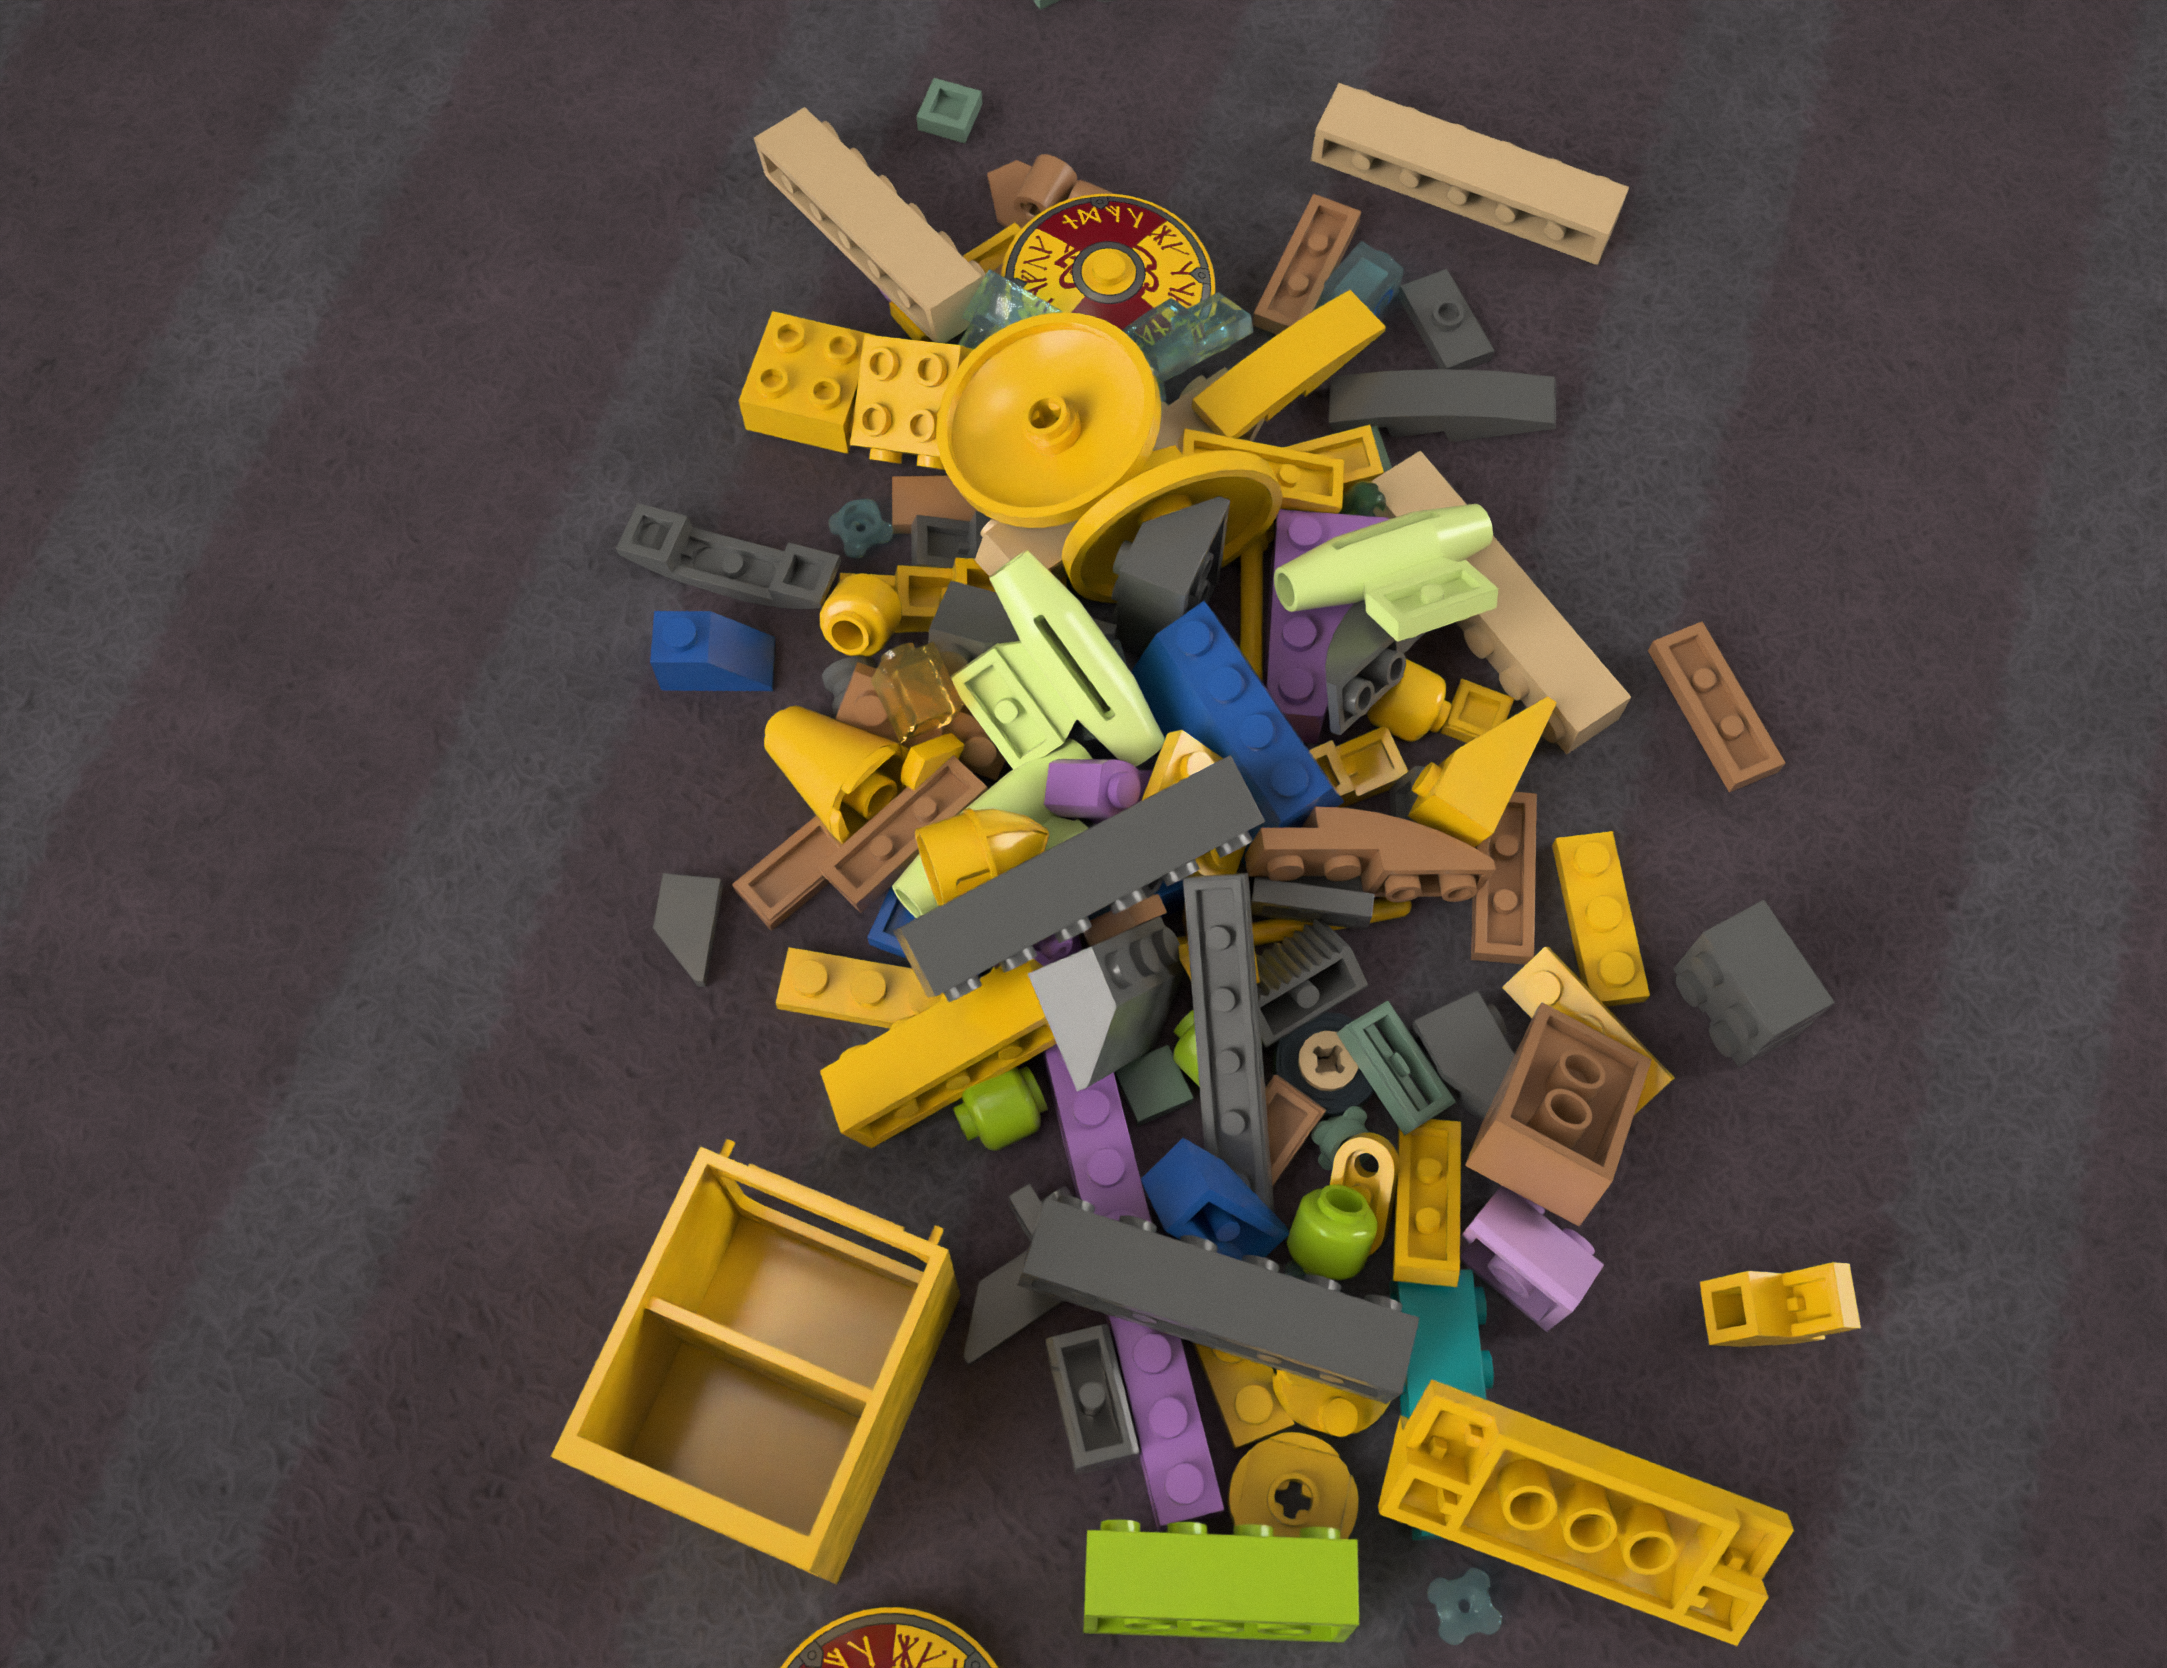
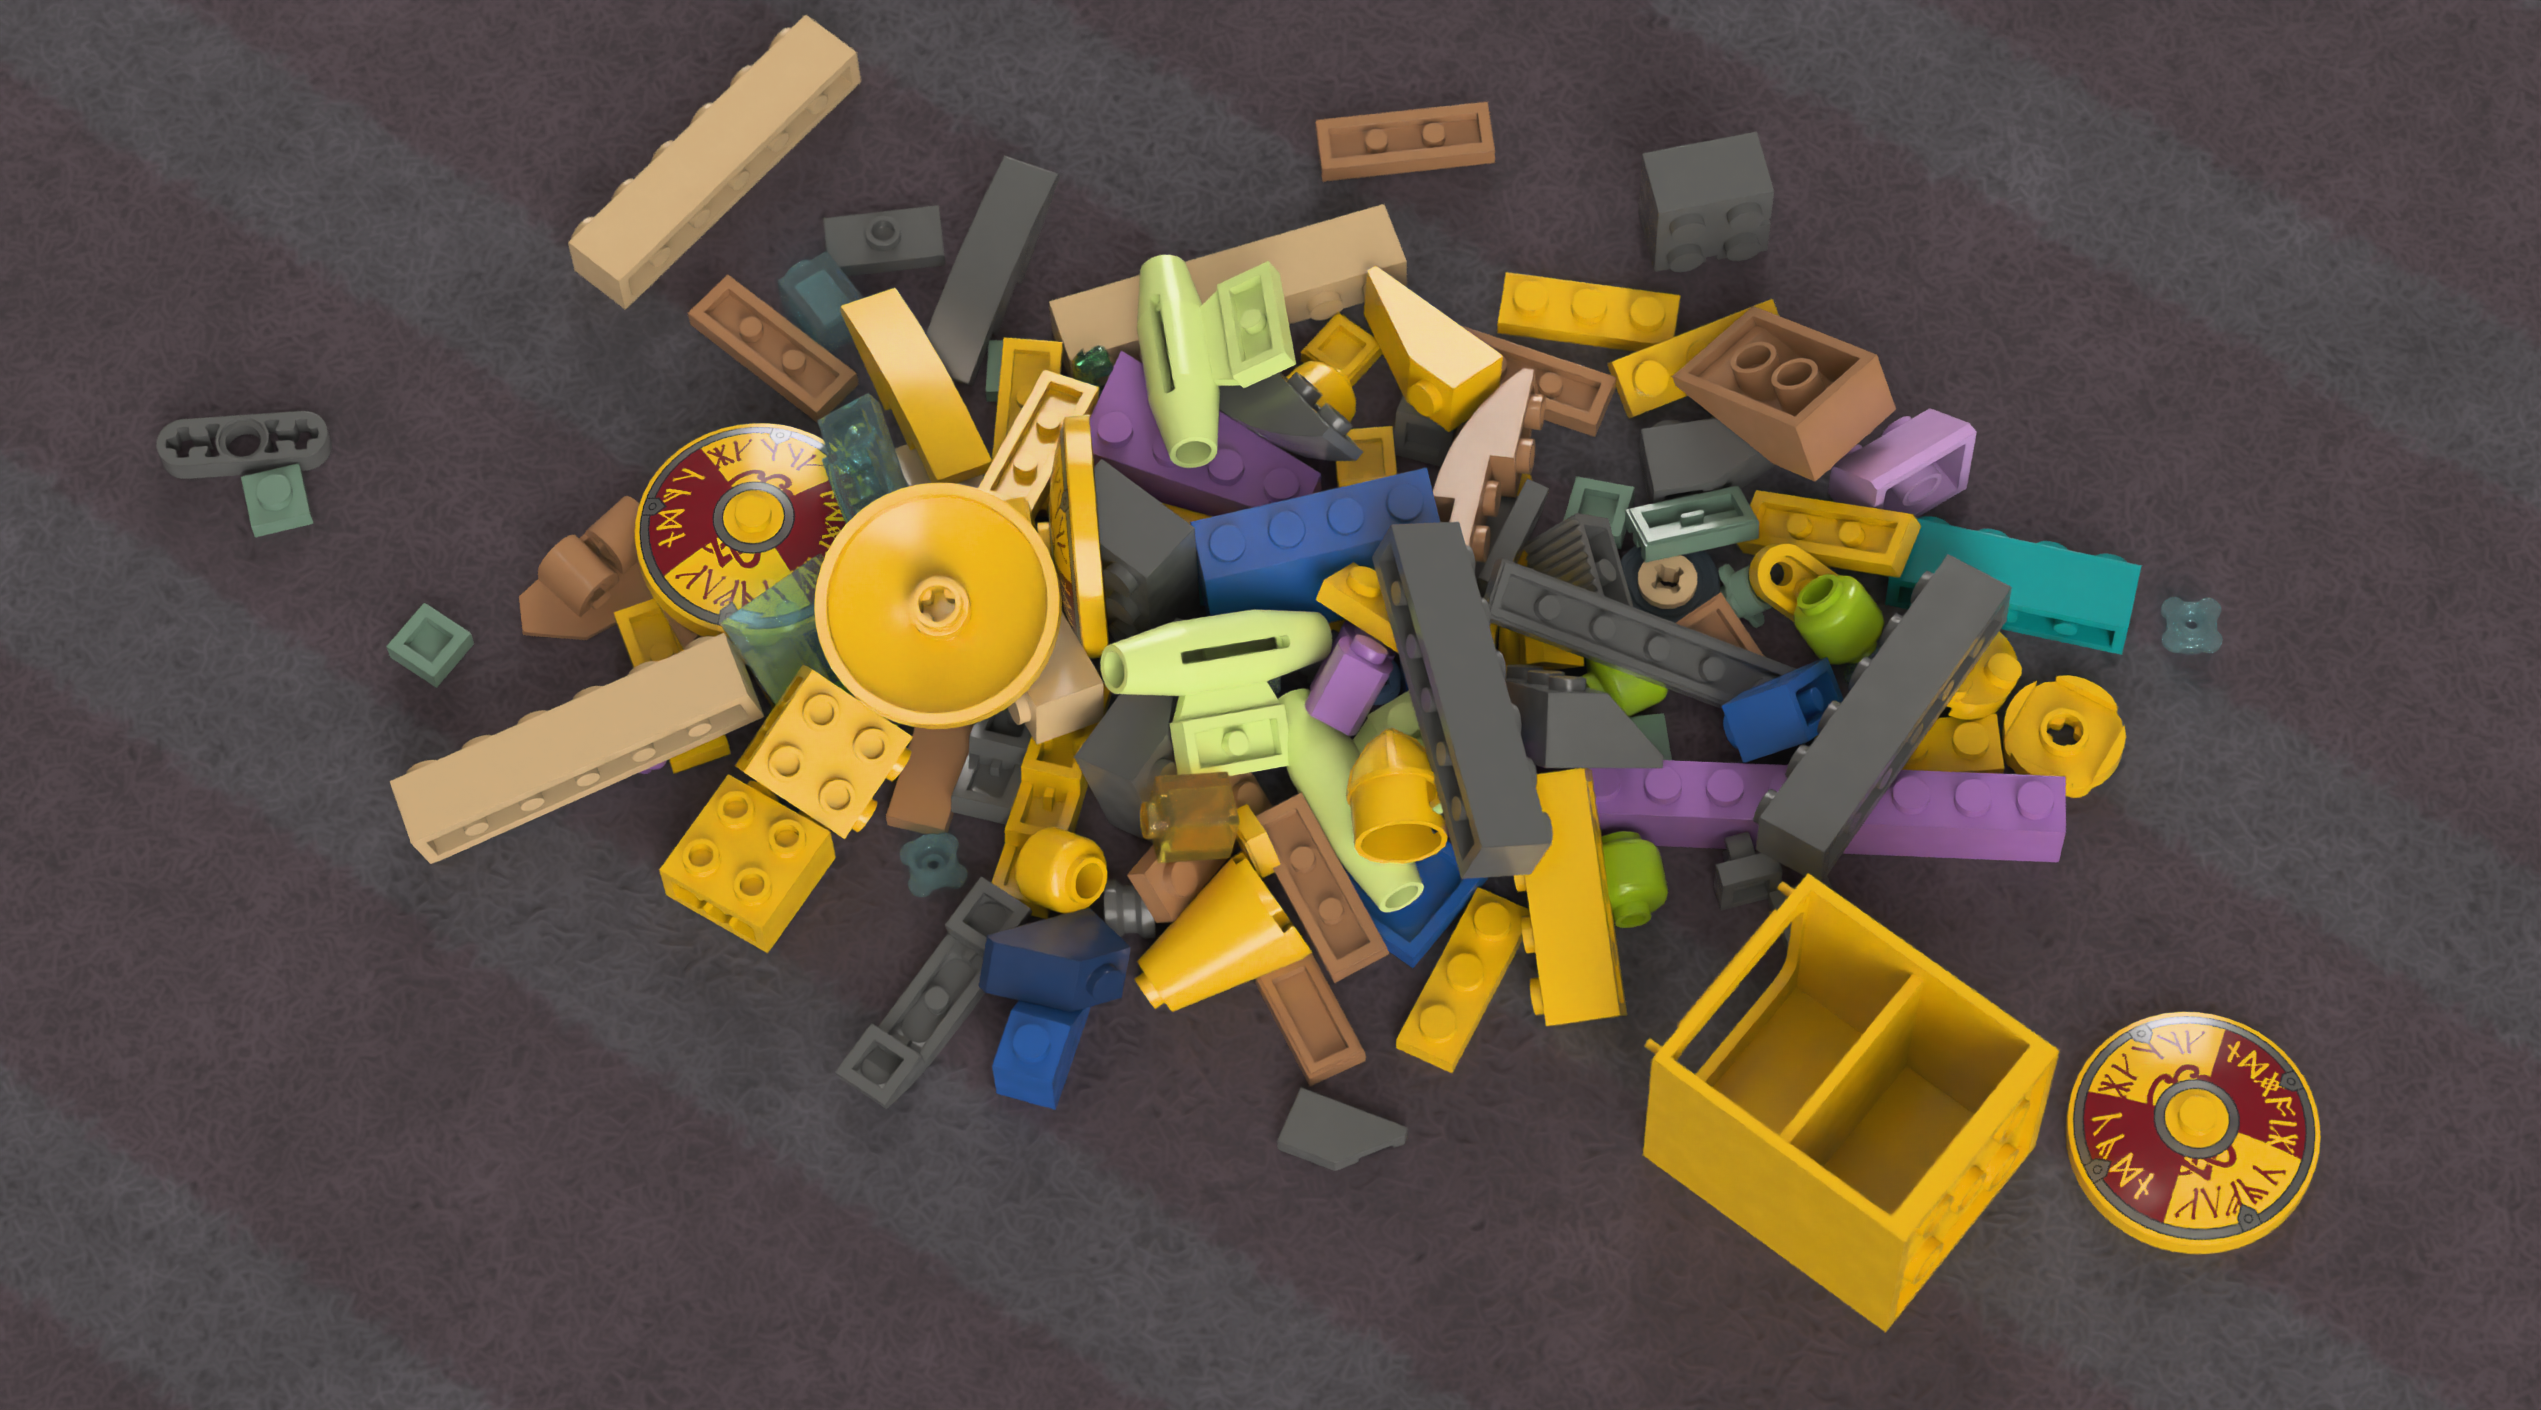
camera: 70 degrees left, 5 degrees down
(773, 638) = (1057, 962): none -> dark blue slope
(1092, 1399) = (1932, 868): dark grey brick -> none
(1221, 1583) = (2128, 800): lime slope -> none
(1390, 978) = (1602, 500): none -> sand green plate
(1582, 1512) = (2141, 494): yellow slope -> none
(1779, 1307) = (2003, 283): yellow brick -> none

